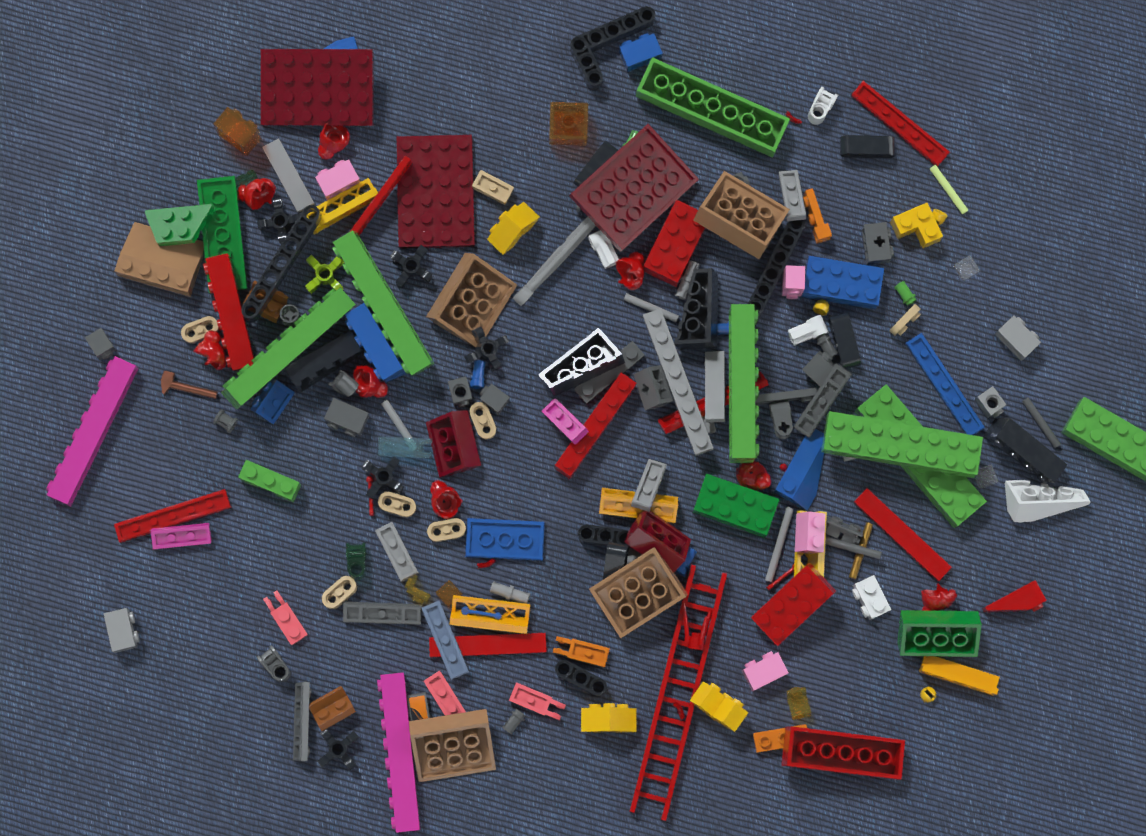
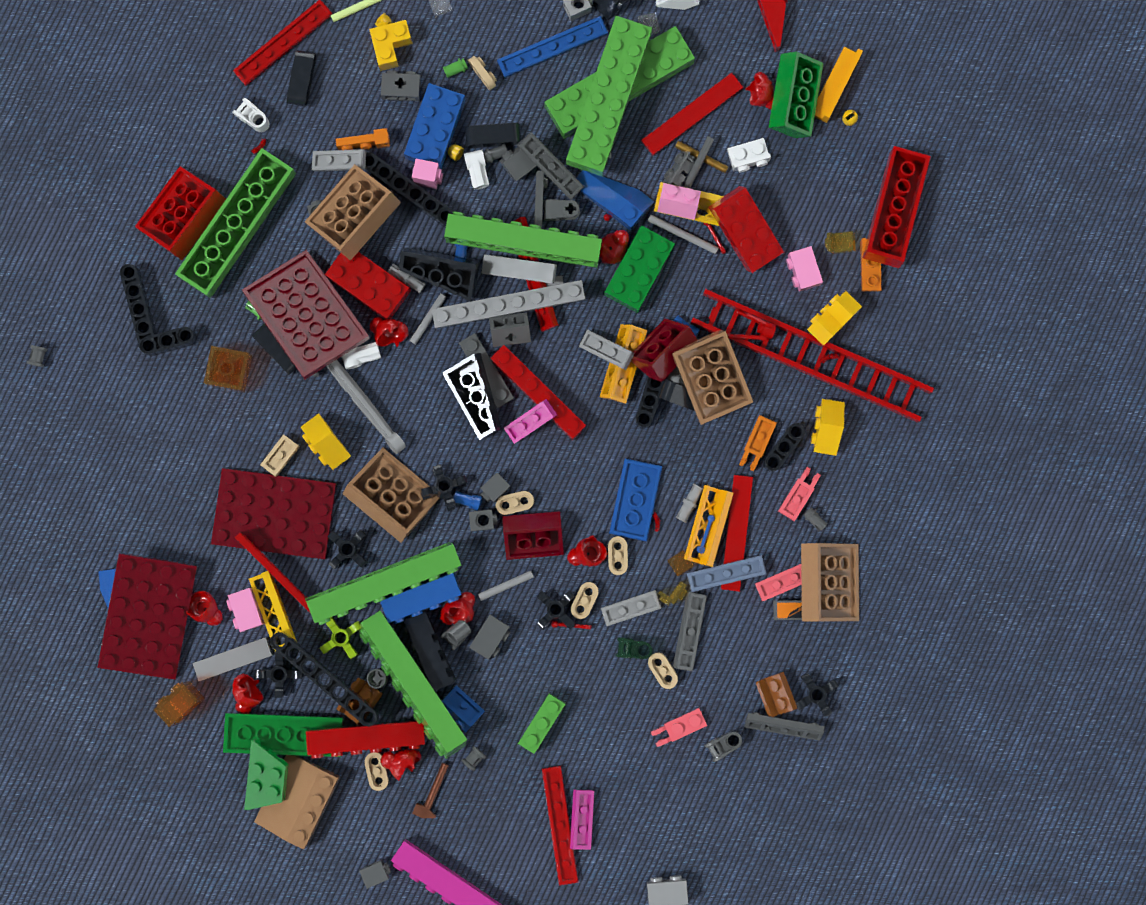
camera: 75 degrees left, 5 degrees up
(244, 179) = (229, 705): clear green axle -> none
(399, 752) = (828, 634): dark pink brick -> none
(403, 447) = (528, 585): clear light blue plate -> none
(640, 51) = (165, 285): blue hinge -> none
(713, 54) = (181, 213): none -> red slope

